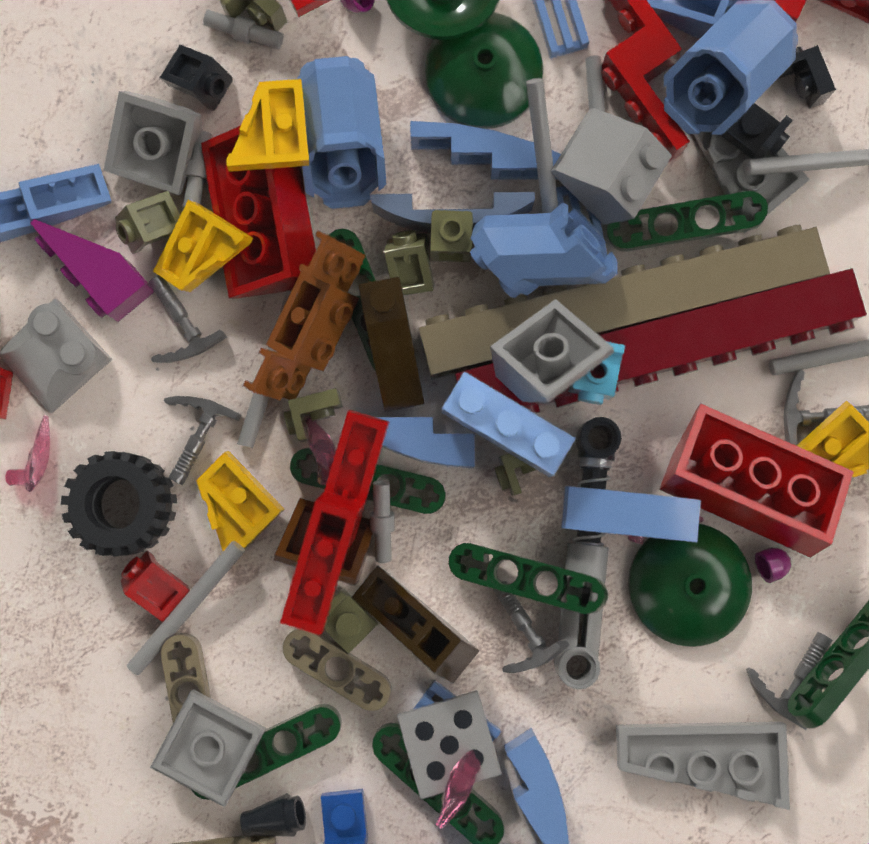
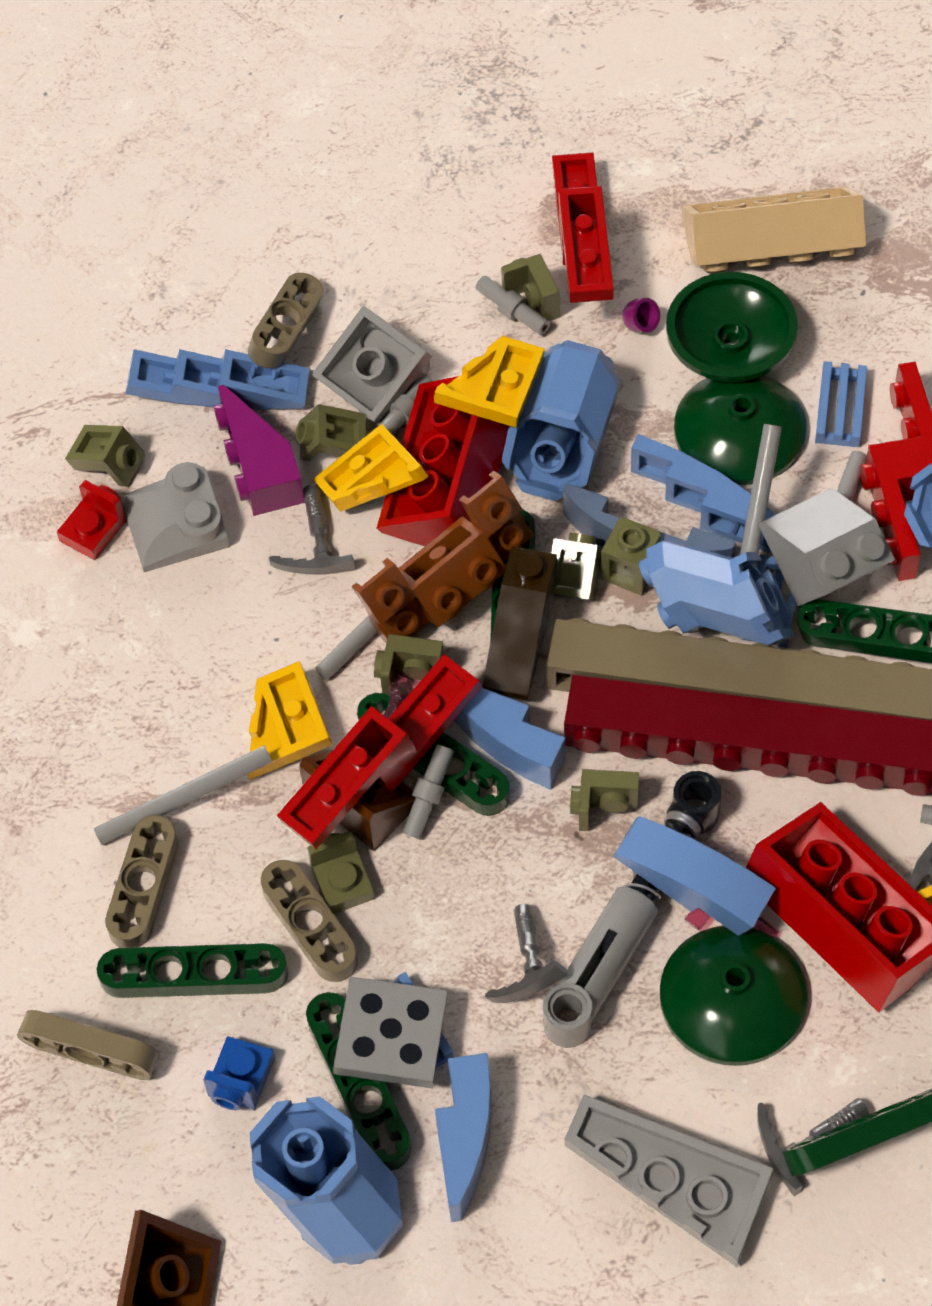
camera: 25 degrees right, 25 degrees down
(36, 462) = (107, 604): clear pink bar -> none
(46, 141) = (285, 334): none -> dark tan beam
(86, 504) = (163, 637): black tyre -> none
(152, 586) = (161, 761): red bracket -> none
(196, 442) = (305, 627): flat silver piece -> none
(197, 76) = (448, 327): black bracket -> none
(208, 747) = (137, 932): light grey tile -> none
(275, 818) = (172, 1036): black cone -> none
(415, 625) = (416, 908): dark brown slope -> none
(458, 787) = (382, 1065): clear pink bar -> none
(507, 425) = (601, 730): light blue brick -> none
(526, 580) = (557, 894): dark green beam -> none
(547, 354) = (669, 671): light grey slope -> none
(596, 390) = (733, 711): medium azure brick -> none
(772, 564) = (835, 1004): magenta hinge -> none

